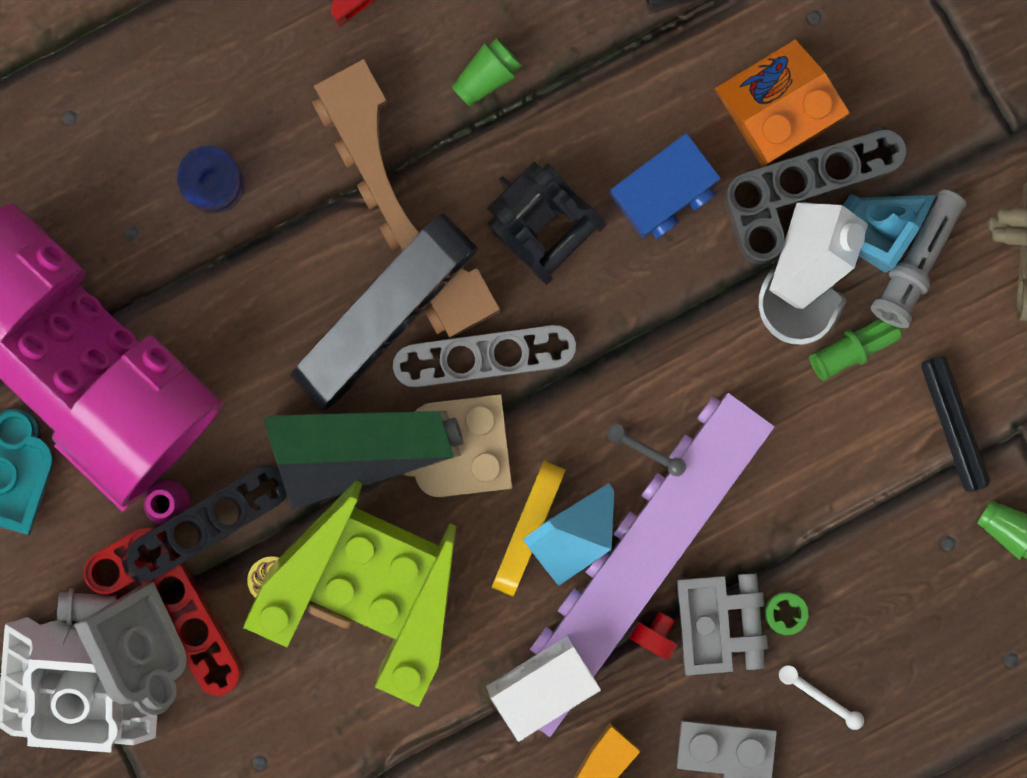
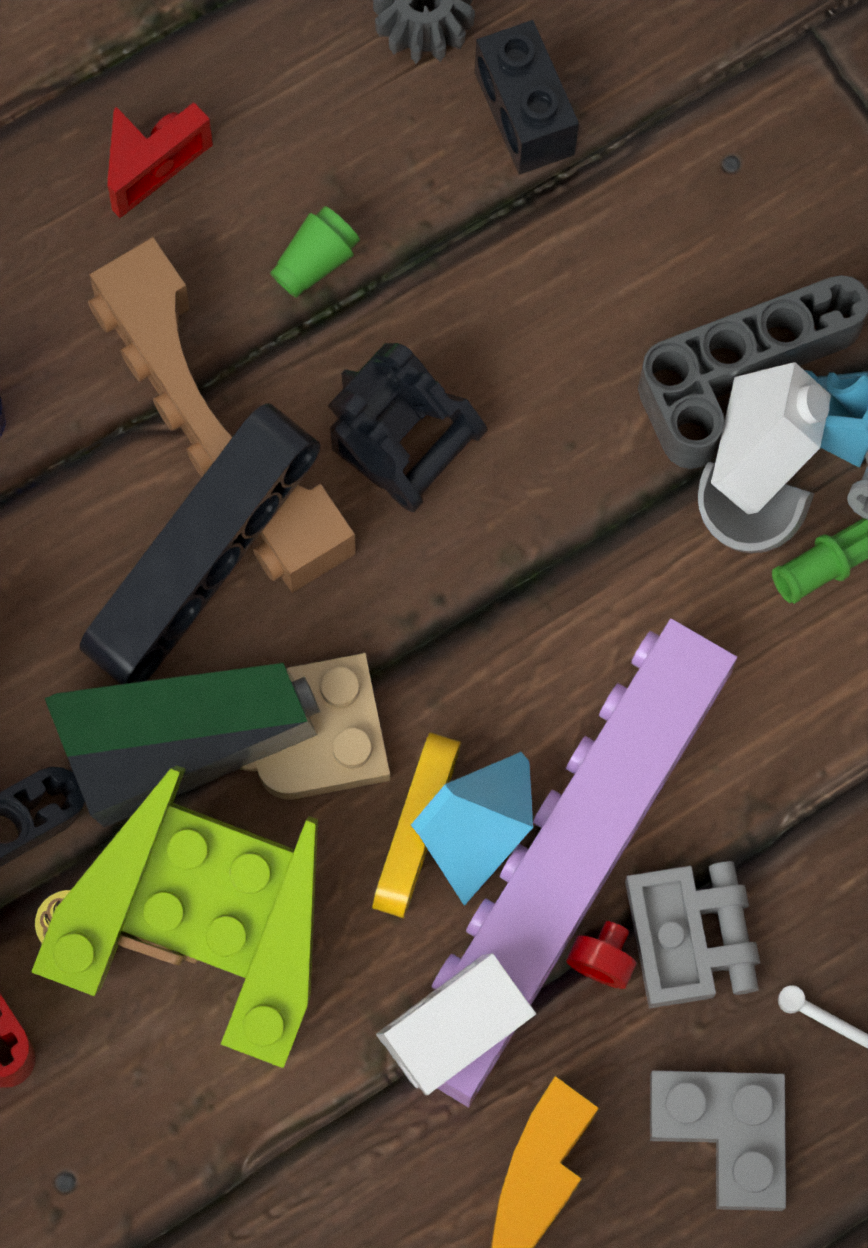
camera: 10 degrees left, 15 degrees down
(483, 349) = (336, 597): light grey beam -> none
(619, 435) = (529, 696): dark grey hinge -> none
(665, 187) = (560, 374): blue brick -> none
(782, 102) = (704, 262): orange slope -> none
(793, 601) = (787, 896): bright green bush -> none

